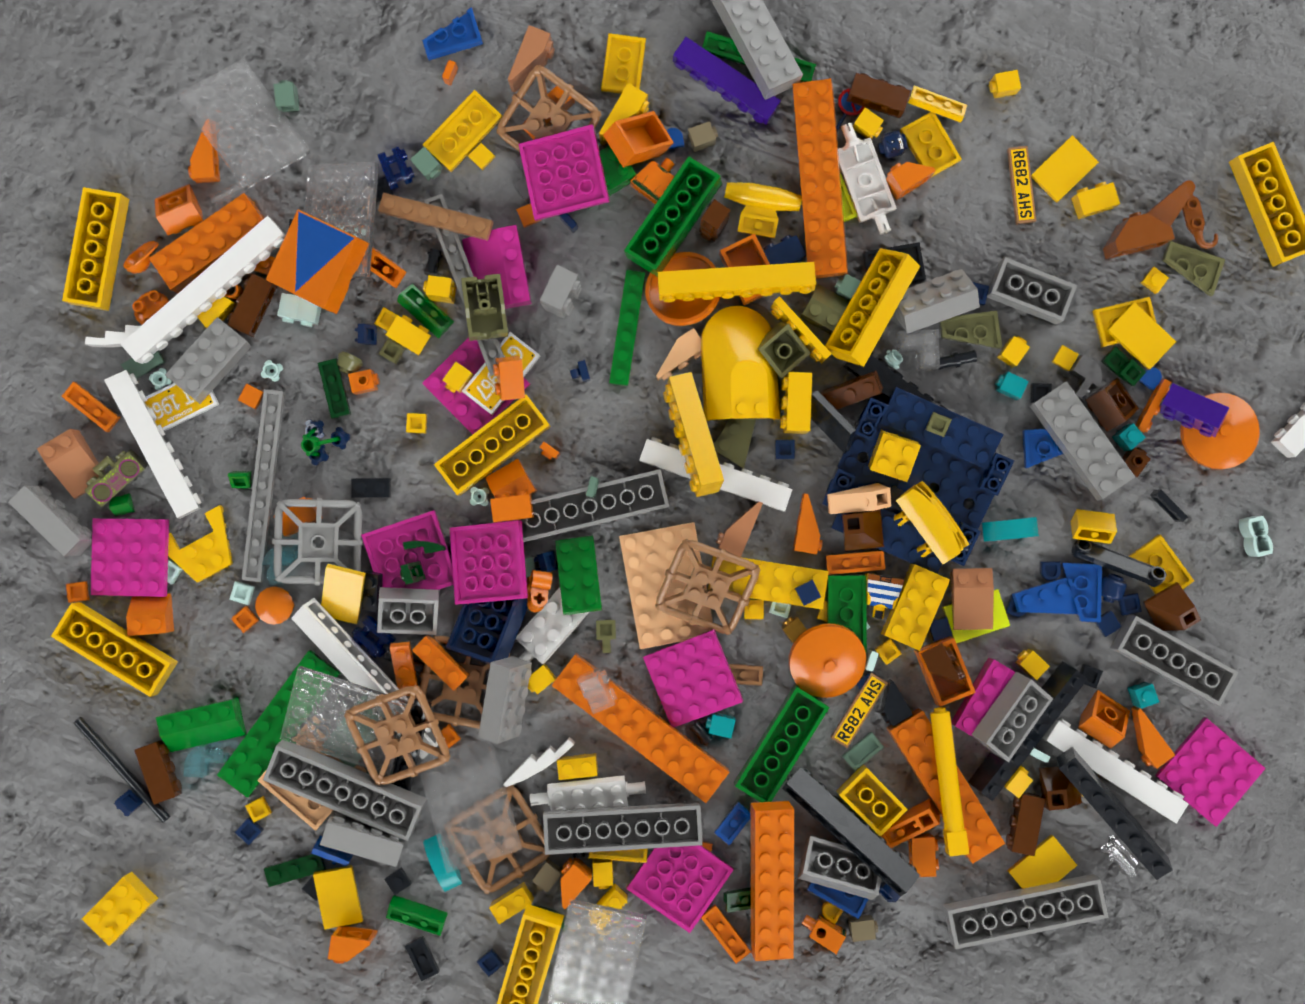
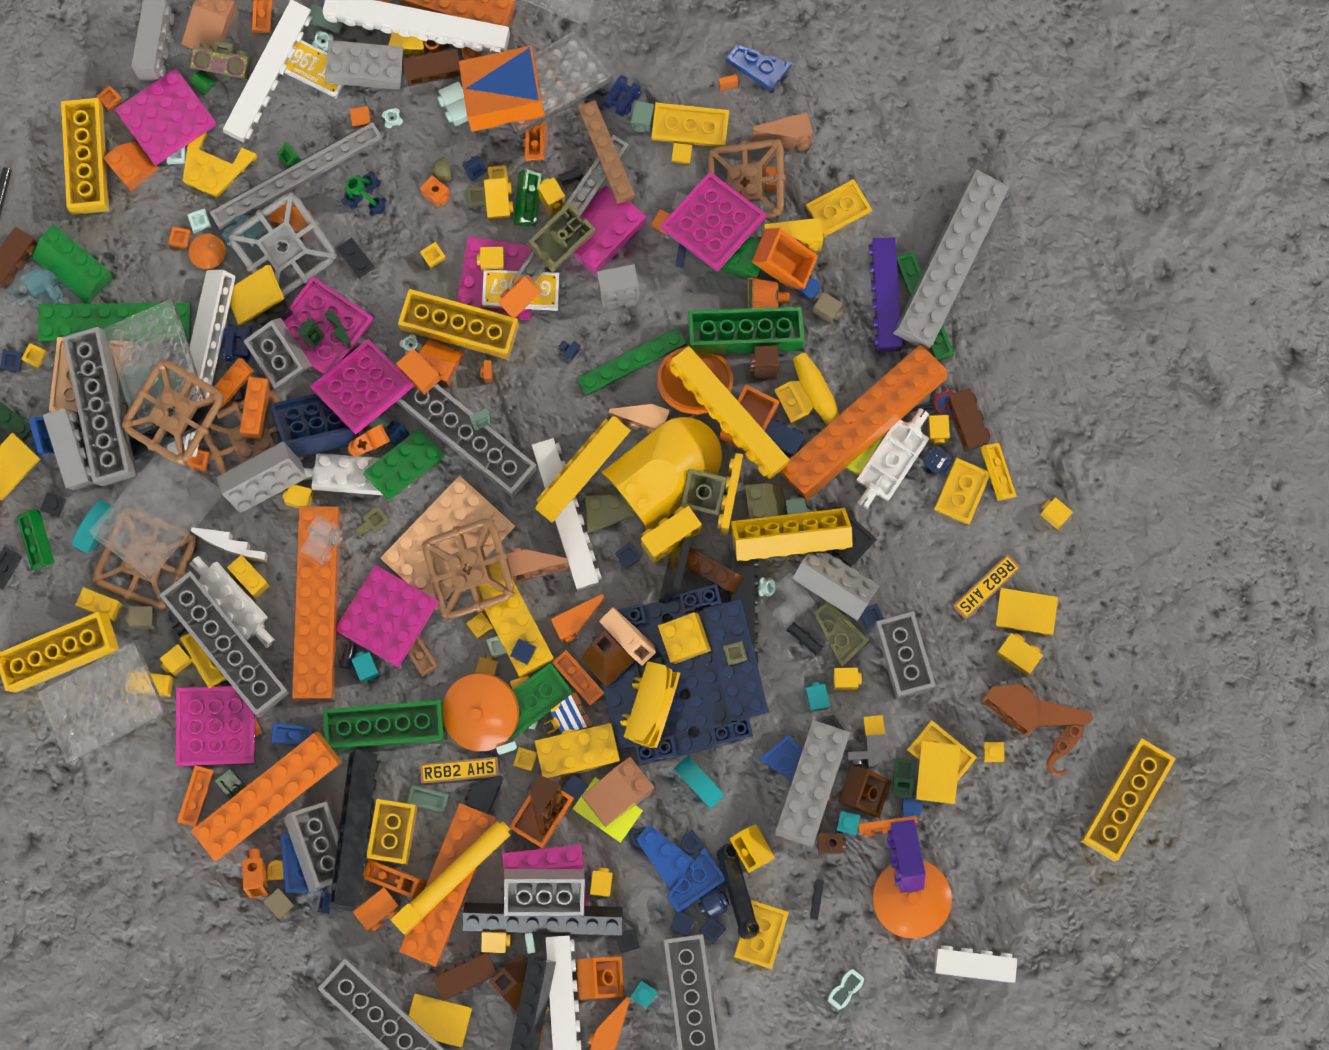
camera: 55 degrees right, 10 degrees down
(334, 388) = (413, 174): dark green plate -> none
(490, 962) = (37, 625): dark blue tile -> none
(574, 879) = (154, 637): orange slope -> none
(907, 177) = (918, 490): orange slope -> none
(1172, 609) = (731, 963): reddish brown slope -> none
(1194, 265) = (1030, 775): olive wing -> none

